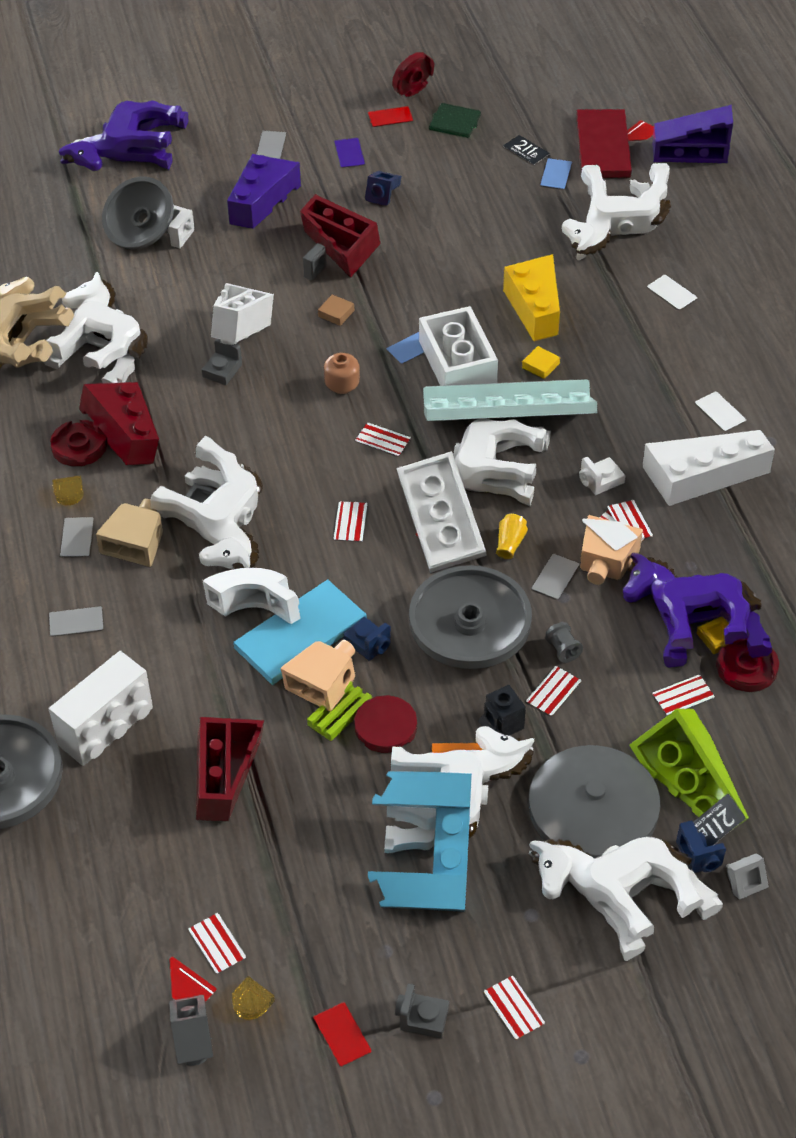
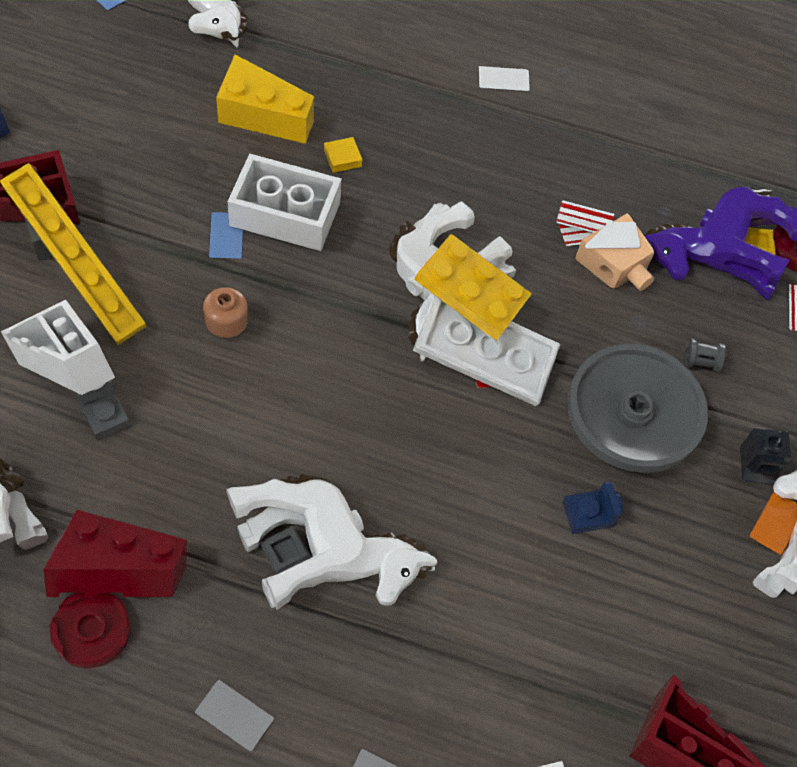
camera: 65 degrees left, 10 degrees up
(68, 490) = (158, 683): clear yellow tile -> none
(131, 533) = (290, 649): tan torso -> none
(252, 588) = (471, 570): white arch -> none
(310, 279) = (73, 254): none -> yellow plate
(319, 724) = (690, 613): lime tile -> none
(320, 673) = (624, 579): light nougat torso -> none
(323, 617) = (541, 568): medium azure tile -> none
(336, 310) = (120, 262): medium nougat tile -> none
(350, 521) = (419, 431): sticker -> none
(383, 439) = (330, 336): sticker -> none
(385, 723) = (709, 561): dark red tile -> none
(471, 468) = (472, 286): none -> yellow plate
(508, 400) = (388, 211): light aqua bracket -> none
(511, 533) = (546, 312): yellow cone -> none
(553, 690) = (743, 399): sticker -> none
(555, 576) = (609, 312): light grey sticker -> none
(600, 475) = (520, 202): white bracket -> none
(672, 292) = (335, 16): white sticker -> none
(706, 464) = (570, 132): white wedge -> none

